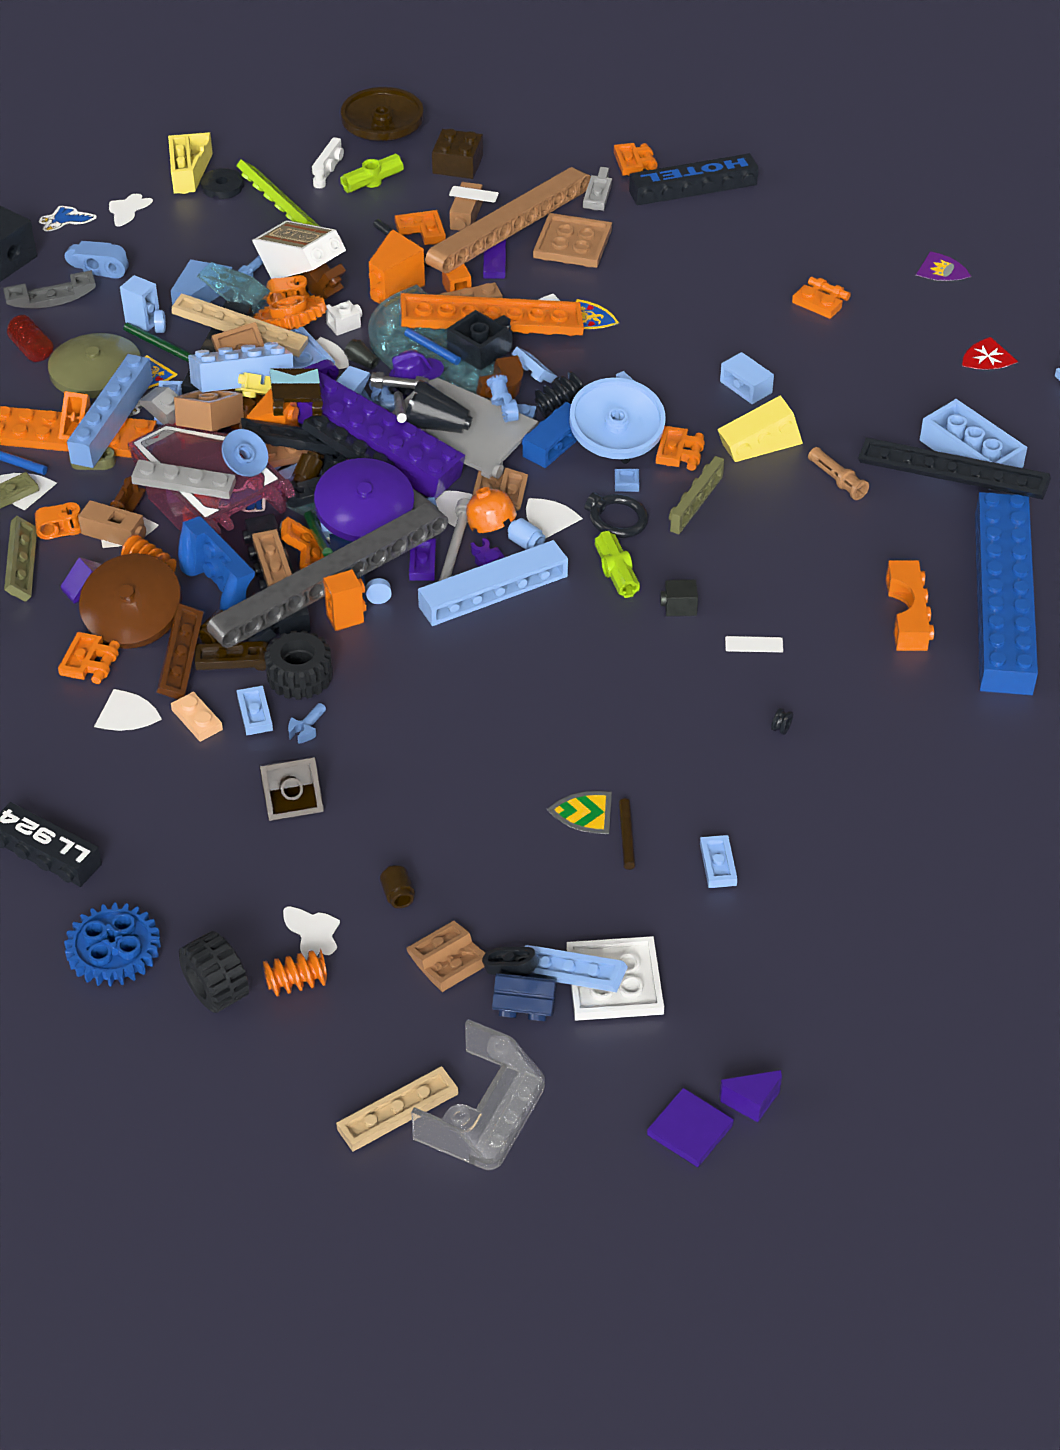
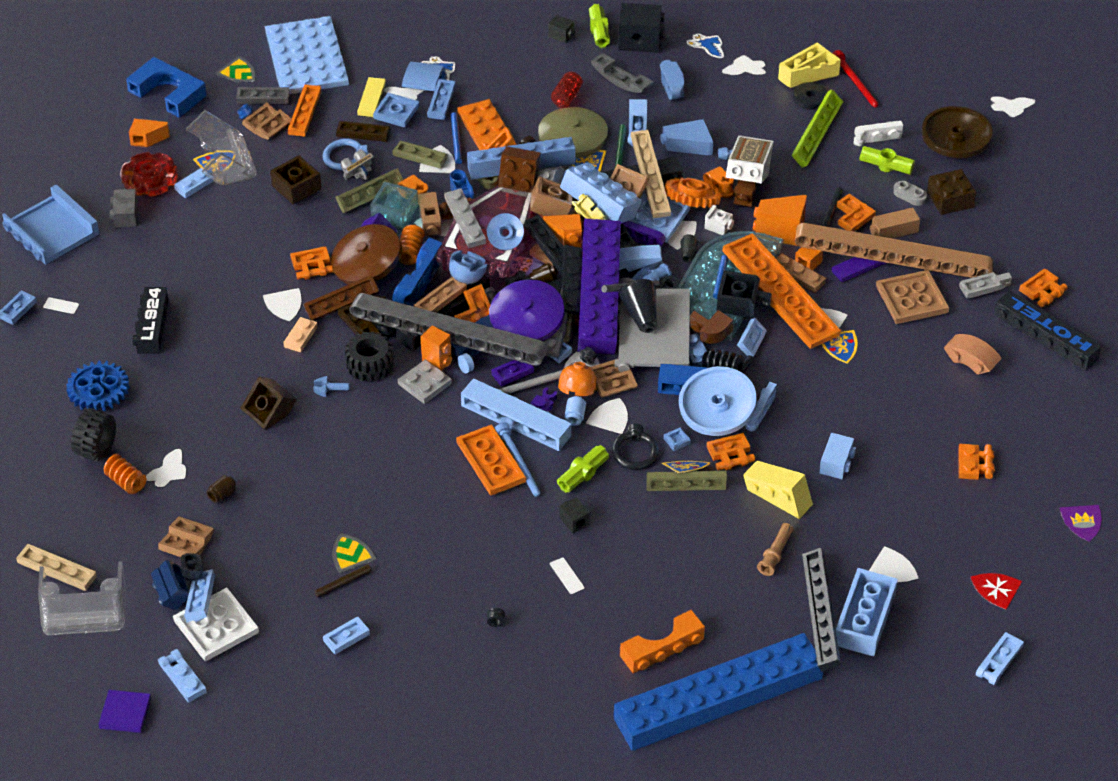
camera: 60 degrees right, 0 degrees up
(70, 539) = (395, 203): none -> clear light blue brick
(91, 482) = (459, 180): none -> blue piece
(138, 413) = (519, 169): none -> reddish brown brick
(235, 285) = (693, 153): clear light blue slope -> none
(242, 146) = (838, 53): none -> red piece
(254, 710) = (321, 356): light blue plate -> none
(258, 514) = (467, 267): none -> medium blue cylinder
(295, 386) = (586, 223): dark brown flag -> none
(317, 533) = (473, 310): dark green bar -> none
(371, 72) = (1011, 107): none -> white sticker
(371, 639) = (424, 381): none -> light grey plate
(378, 380) = (668, 286): flat silver bar -> none
(413, 364) = (687, 279): dark purple piece -> none
(427, 182) = (910, 193): none -> light grey plate
(452, 491) = (588, 355): none -> black plate
(475, 194) = (903, 220): white sticker -> none
(501, 397) = (681, 340): medium blue connector -> none
(511, 604) = (504, 433): none -> medium blue piece
(543, 631) = (491, 460): none -> orange plate
(671, 1045) = (182, 676): none -> light blue plate
(677, 484) = (686, 466): none -> sticker
(686, 233) = (972, 352): none -> nougat brick
(751, 1093) = (164, 730): dark purple slope -> none
(912, 408) = (894, 565): none -> white sticker

